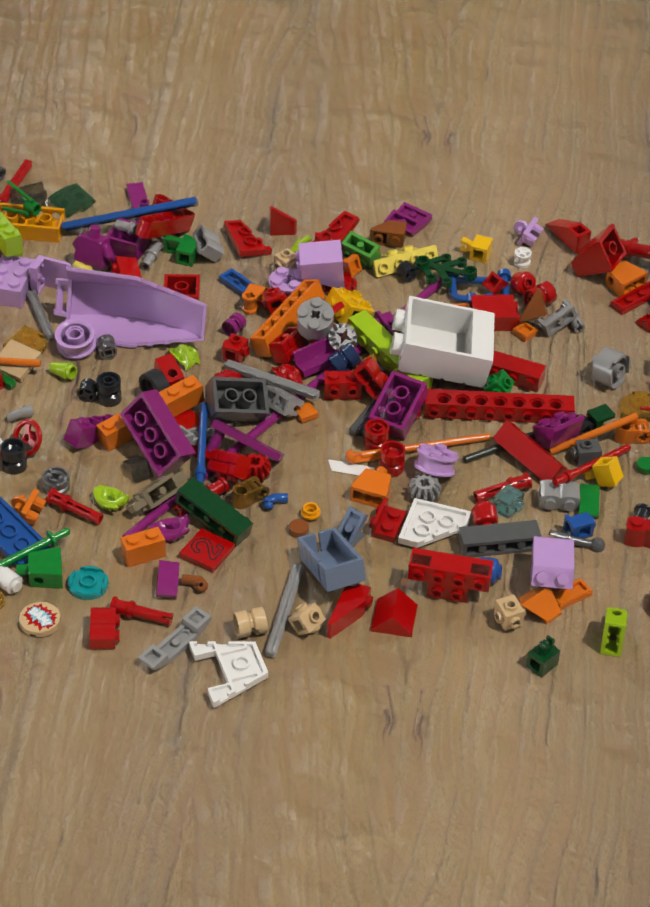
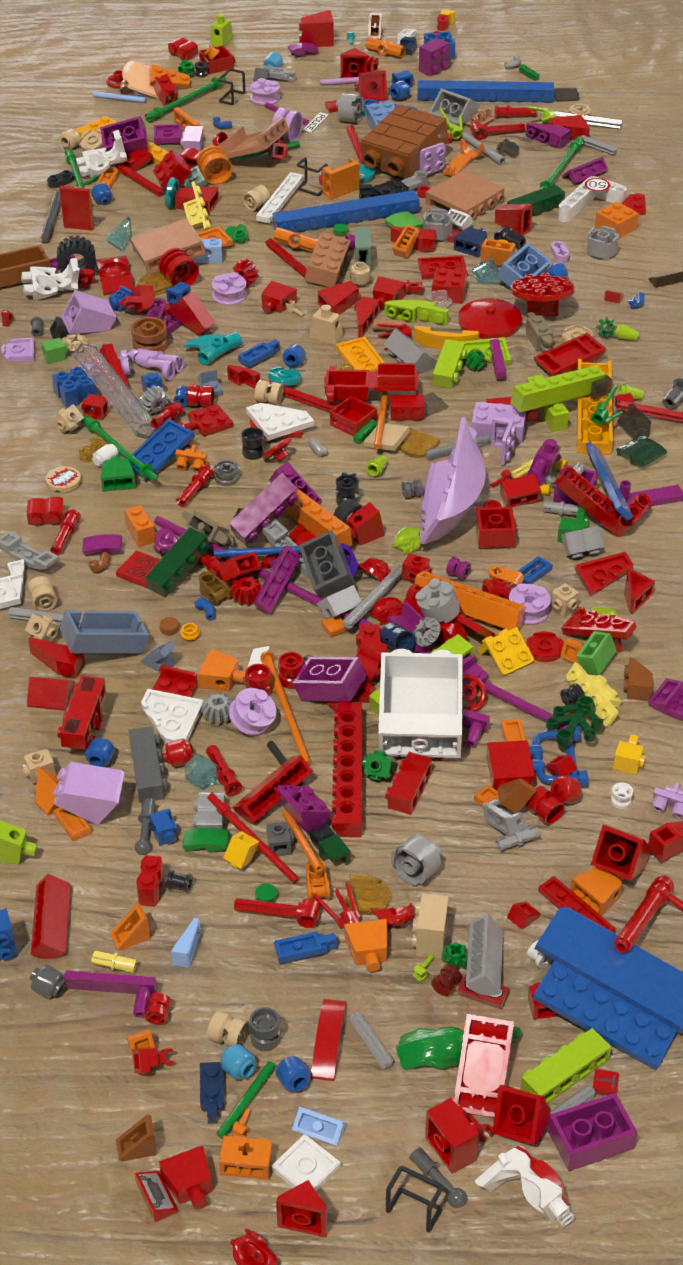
camera: 90 degrees right, 0 degrees up
(75, 338) = (415, 464): lavender wheel -> none
(88, 583) = (105, 503): teal tile -> none
(110, 497) = (206, 505): lime hat -> none
(322, 262) = (549, 616): lavender slope -> none

